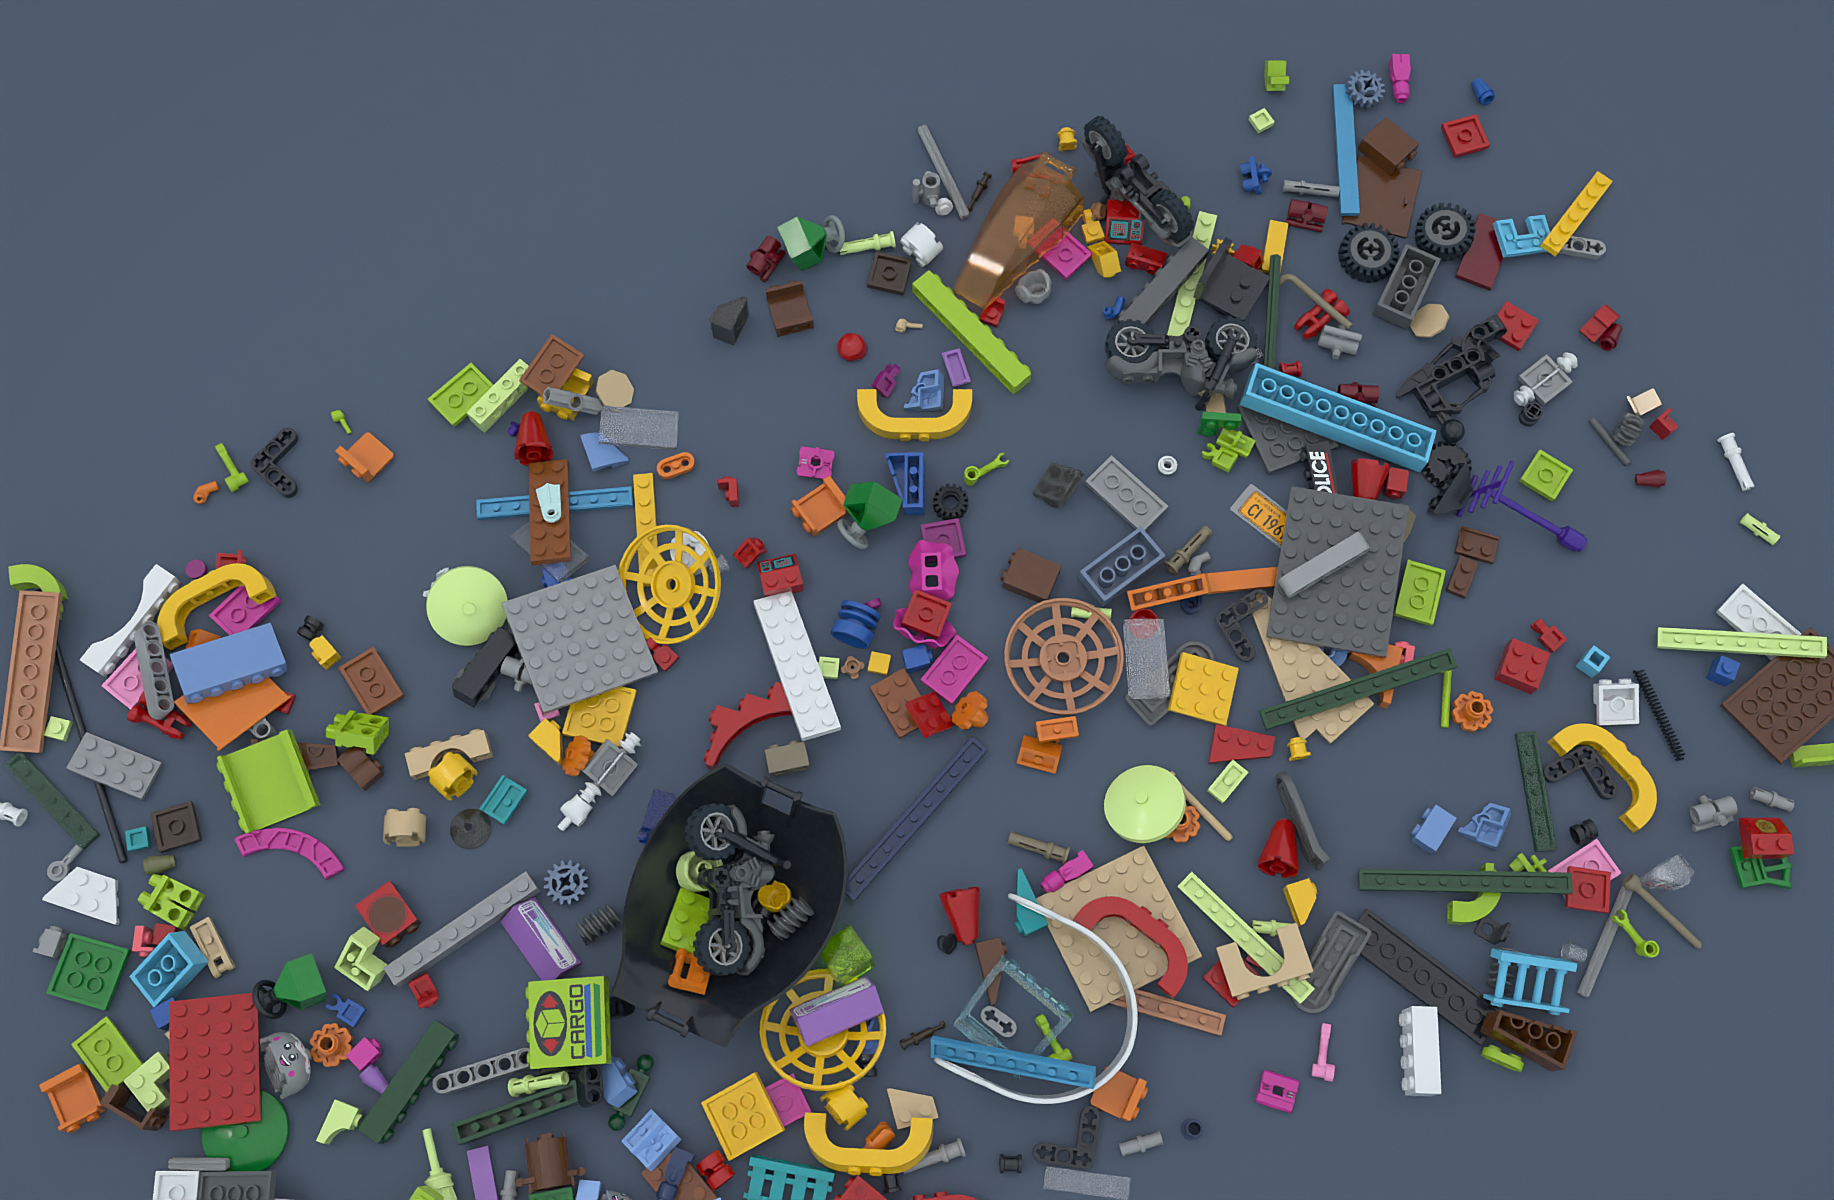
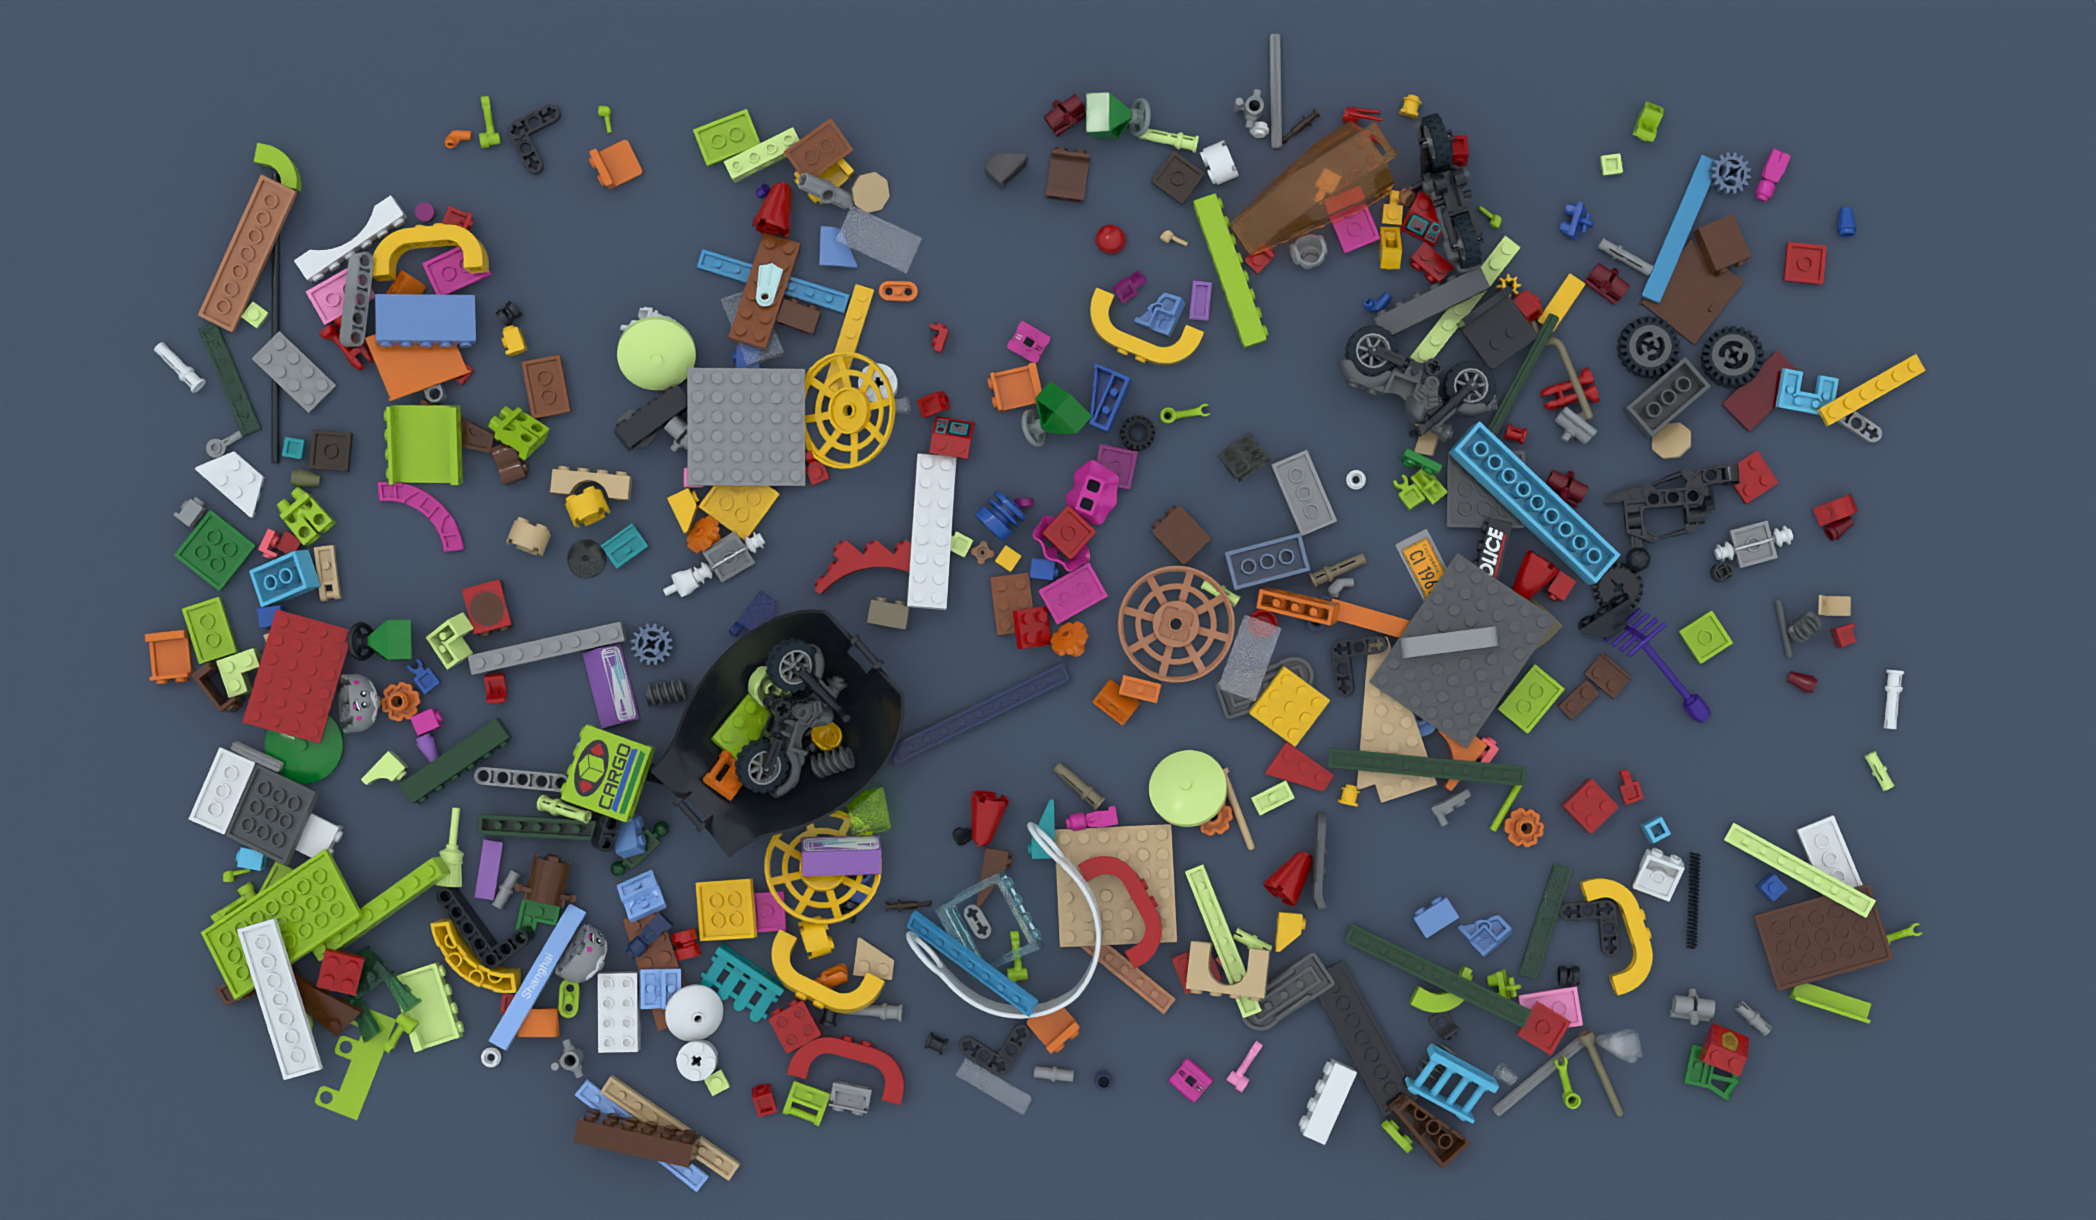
camera: 25 degrees right, 15 degrees up
(591, 523) = (798, 316): none -> reddish brown hinge
(1394, 718) = (1444, 807): none -> light grey plate

